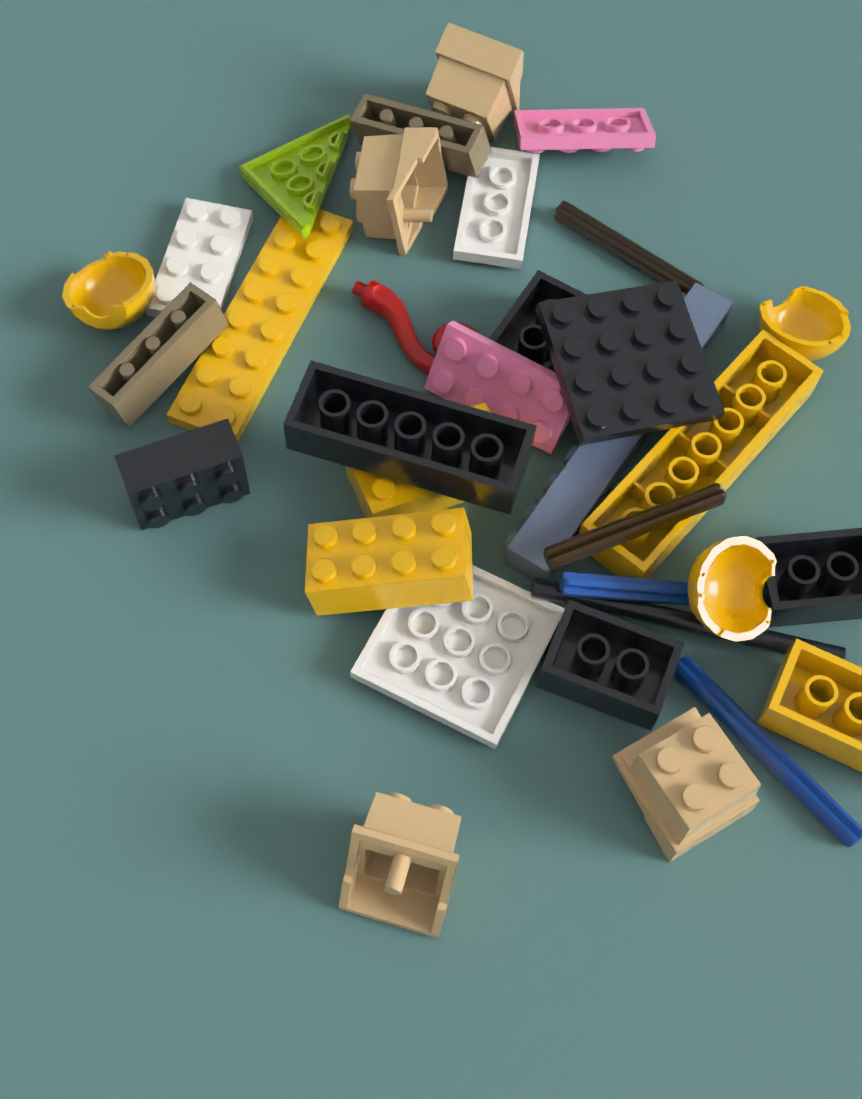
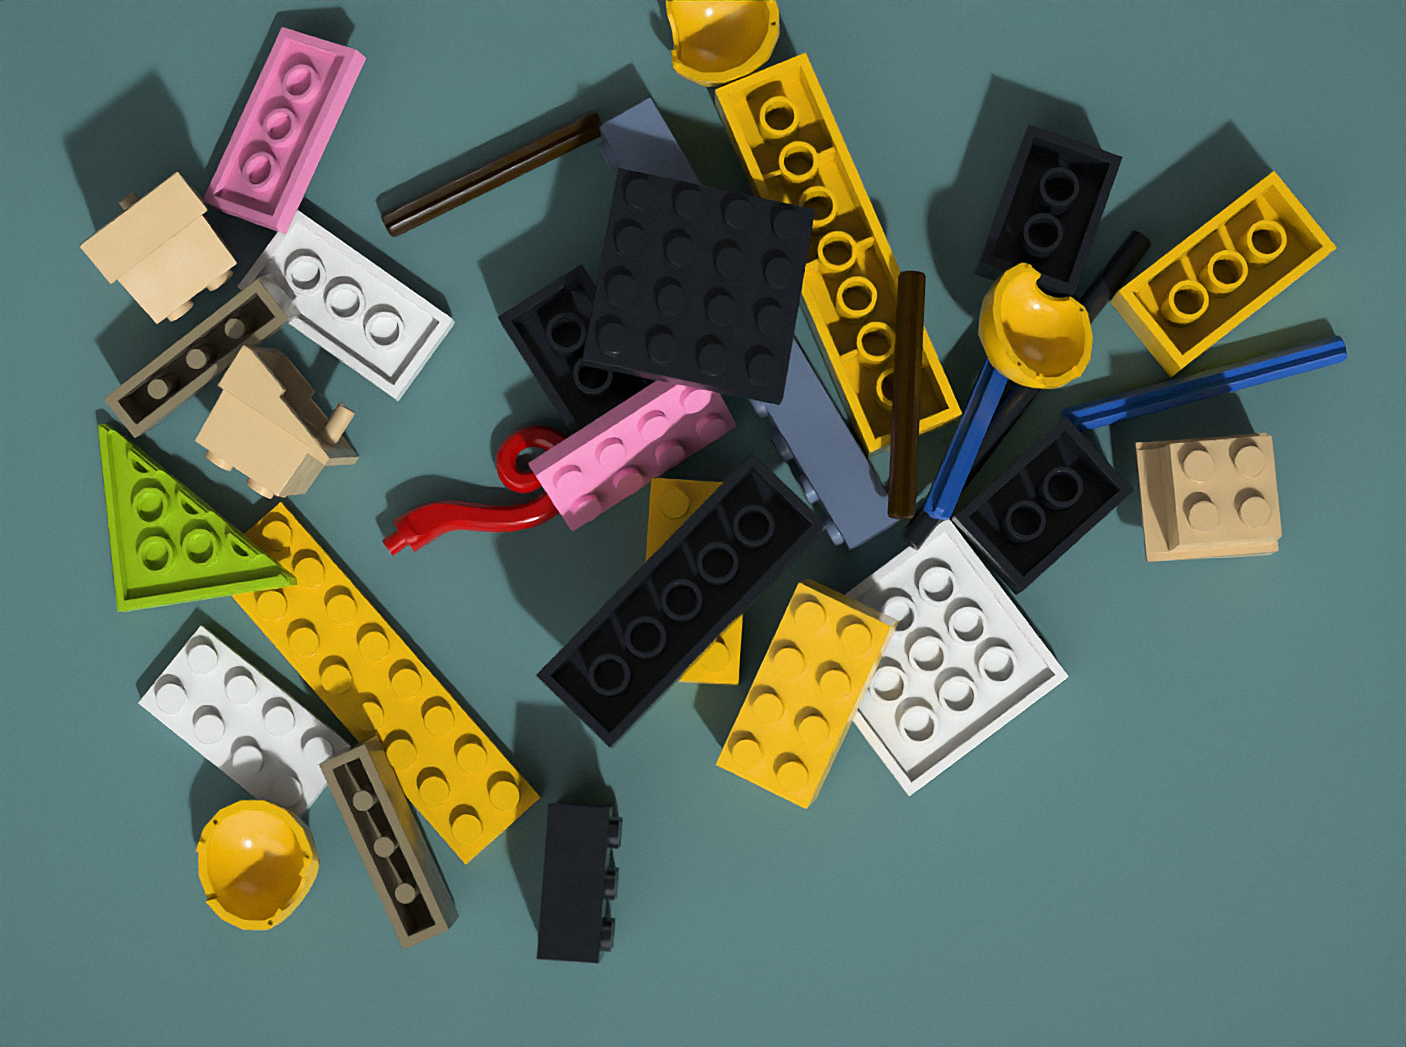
camera: 55 degrees left, 20 degrees up
(402, 864) = (1159, 841): tan piece -> none

